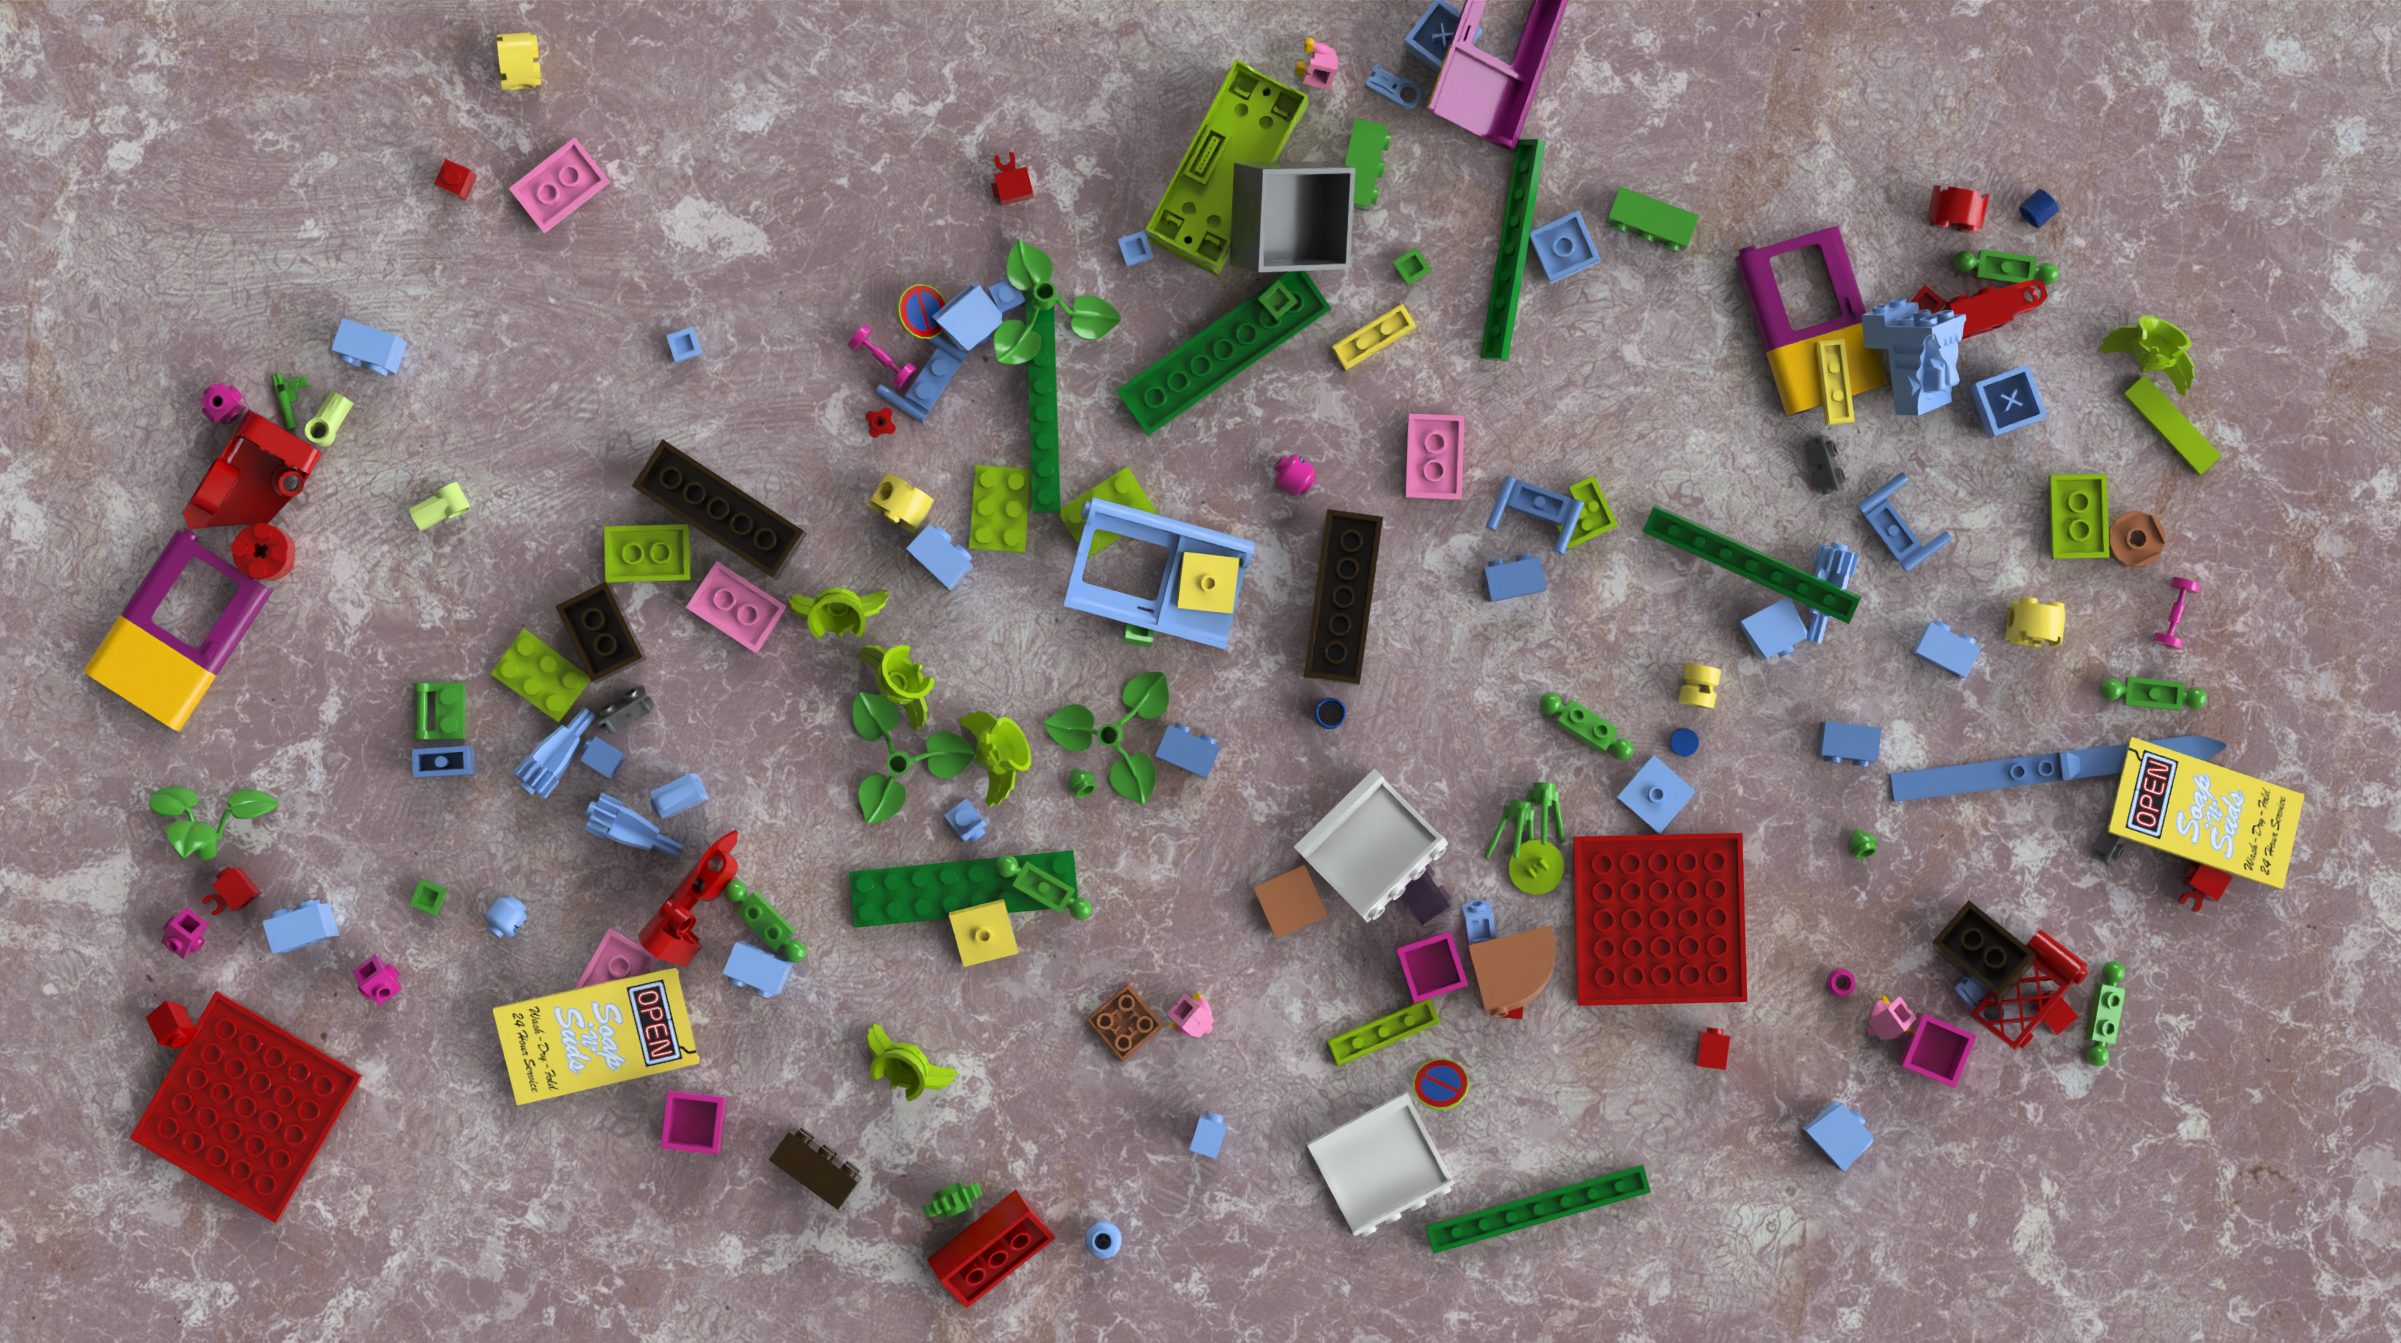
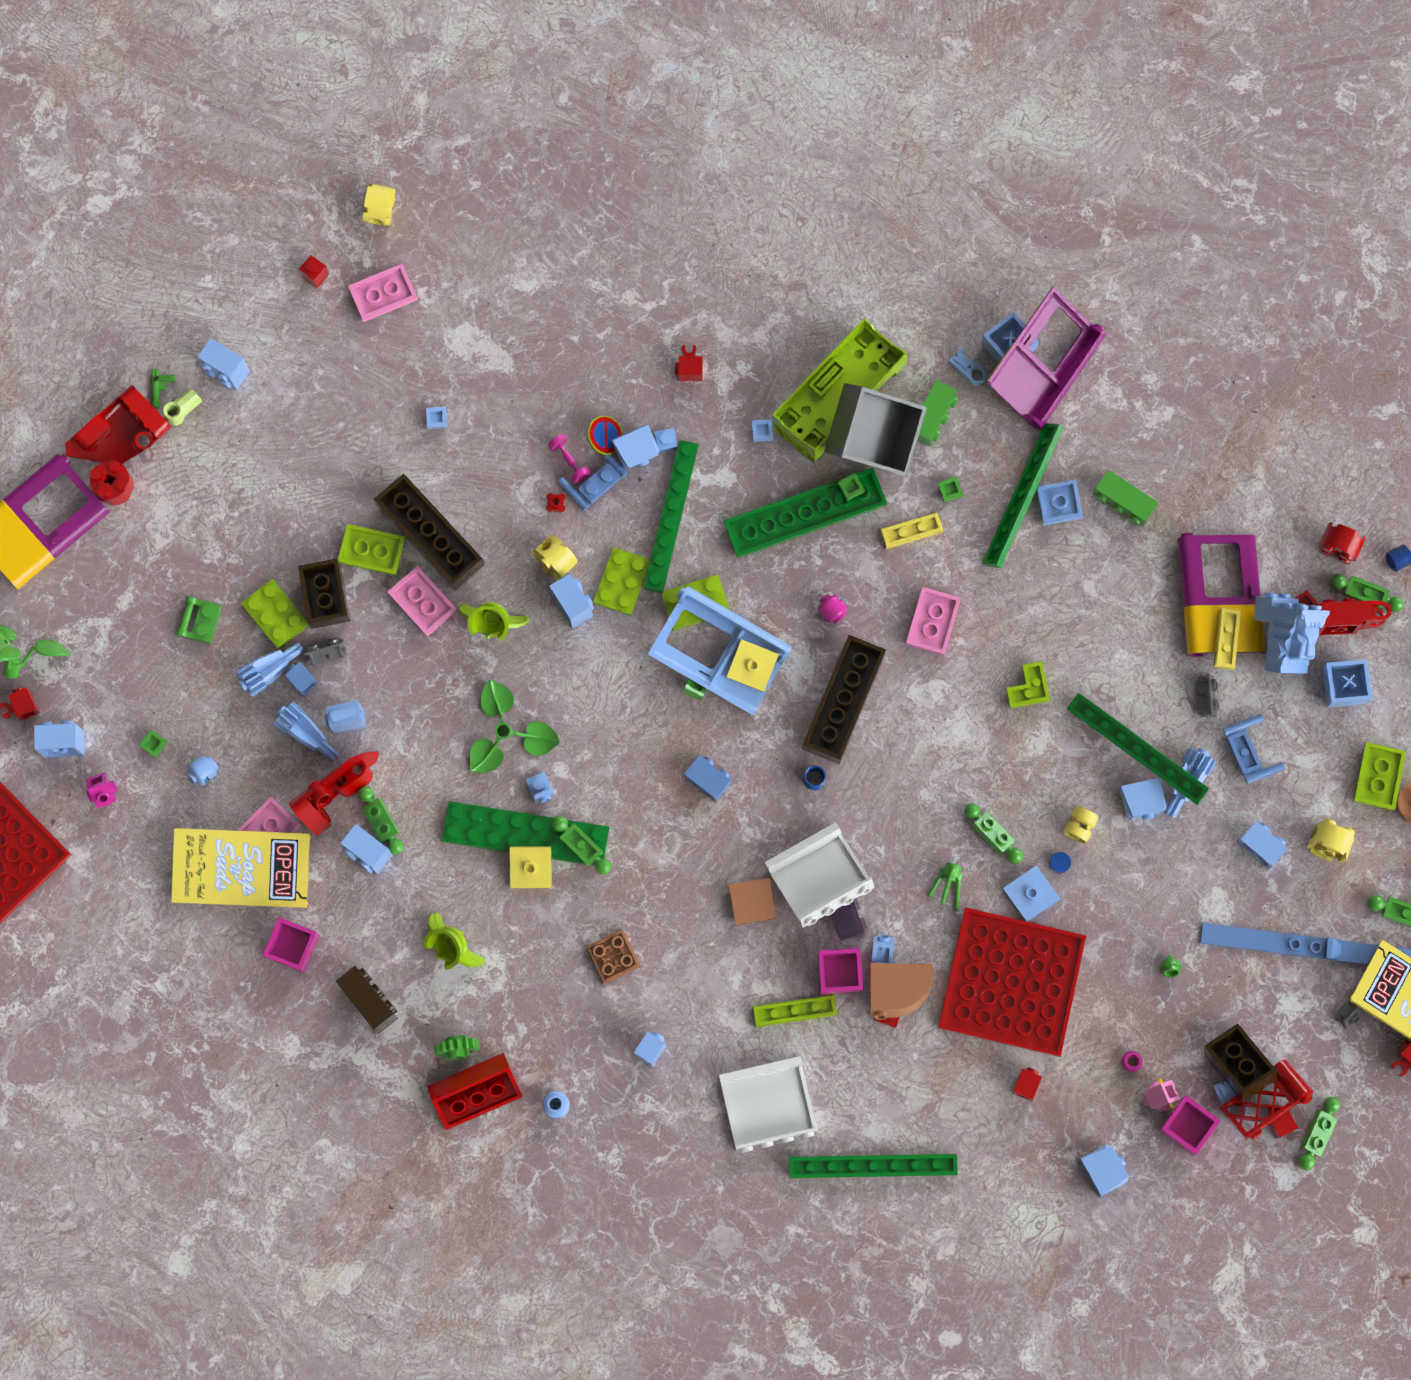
camera: 20 degrees right, 10 degrees down
(230, 408) = (113, 378): dark pink brick -> none
(443, 762) = (191, 653): medium blue brick -> none
(445, 504) = (244, 482): yellowish green piece -> none
(900, 679) = (520, 677): lime helmet -> none
(999, 750) = (576, 744): lime helmet -> none
(1032, 267) = (688, 425): bright green plant -> none
(1073, 731) = (633, 741): bright green plant -> none
(1081, 783) = (627, 782): bright green plate -> none
(1191, 1016) = (661, 963): bright pink piece -> none
(1321, 66) = (921, 340): bright pink piece -> none
(1441, 1084) = (826, 1057): piece -> none
(1514, 578) = (968, 717): medium blue brick -> none
(1520, 813) = (930, 881): bright green plant -> none
(1537, 867) = (933, 923): lime piece -> none
(1538, 504) = (998, 671): medium blue plate -> none
(1849, 742) = (1178, 892): medium blue brick -> none

